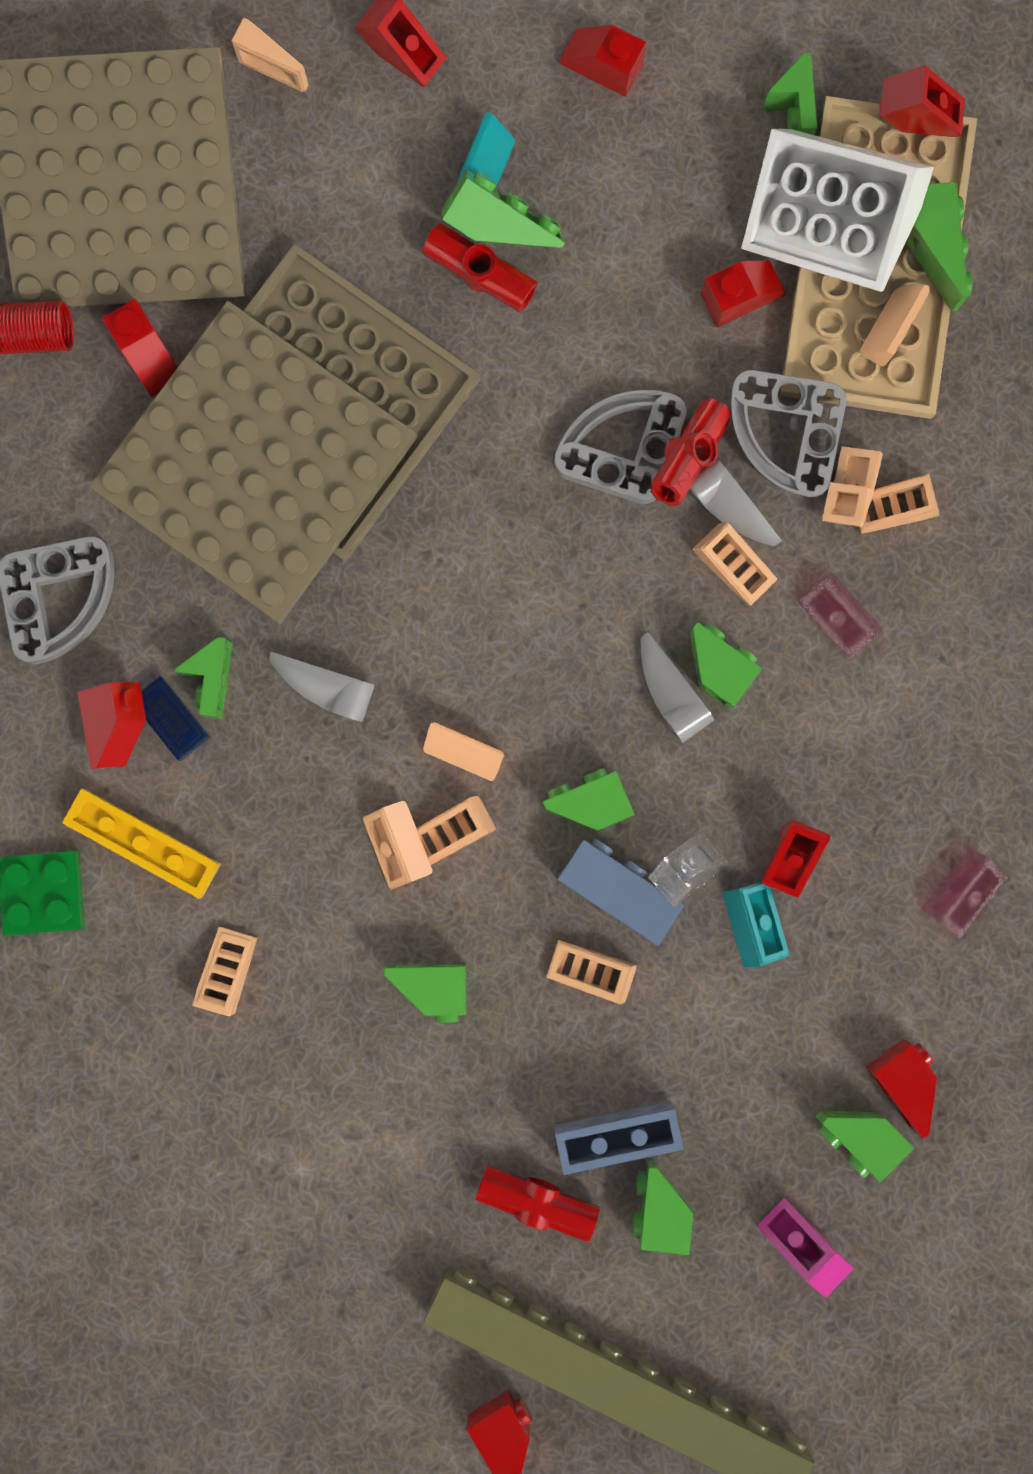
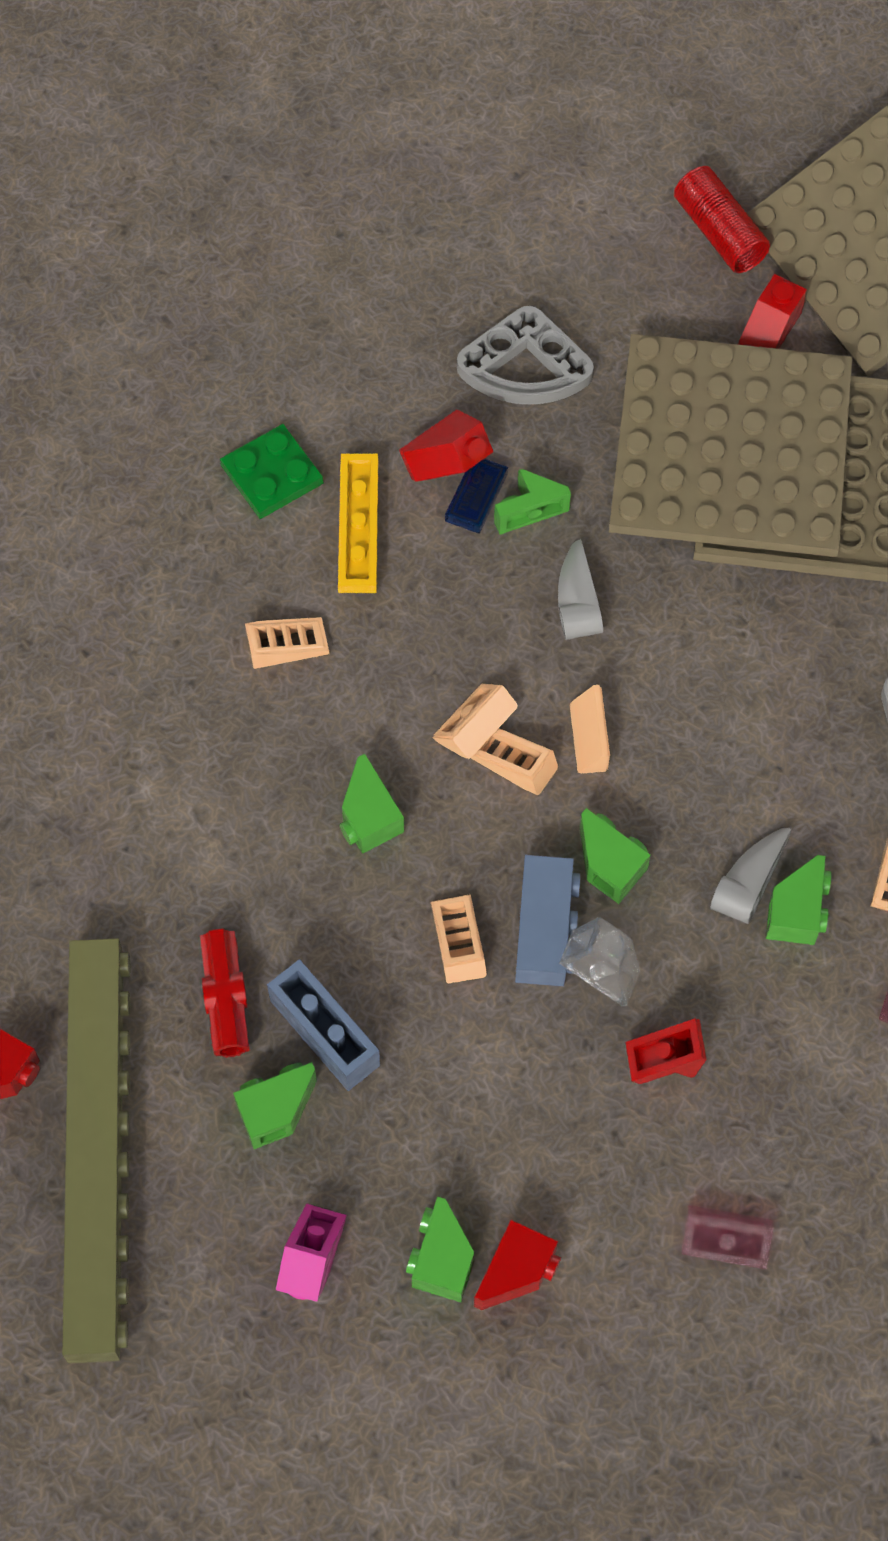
camera: 55 degrees right, 20 degrees down
(756, 925) = (585, 1060): teal slope -> none

